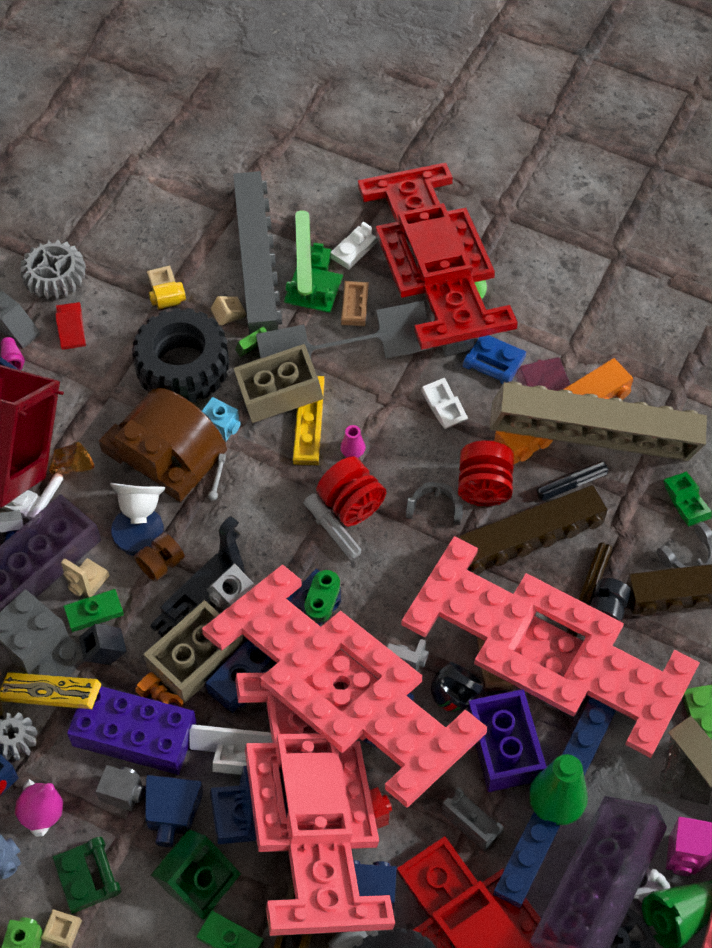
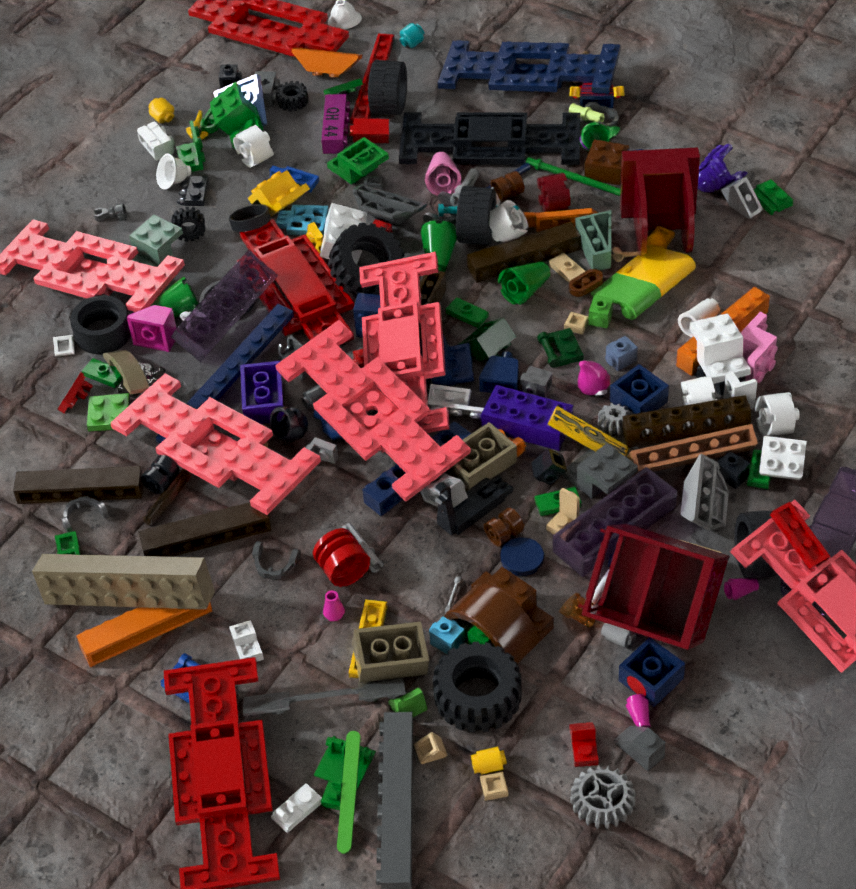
camera: 170 degrees left, 10 degrees down
(137, 501) = (520, 561): white hat -> none
(324, 594) = (379, 475): green plate -> none
(354, 303) = (307, 741): medium nougat plate -> none
(486, 473) = (229, 563): red wheel -> none
(546, 373) = (149, 661): clear pink piece -> none
(560, 791) = (234, 345): green cone -> none

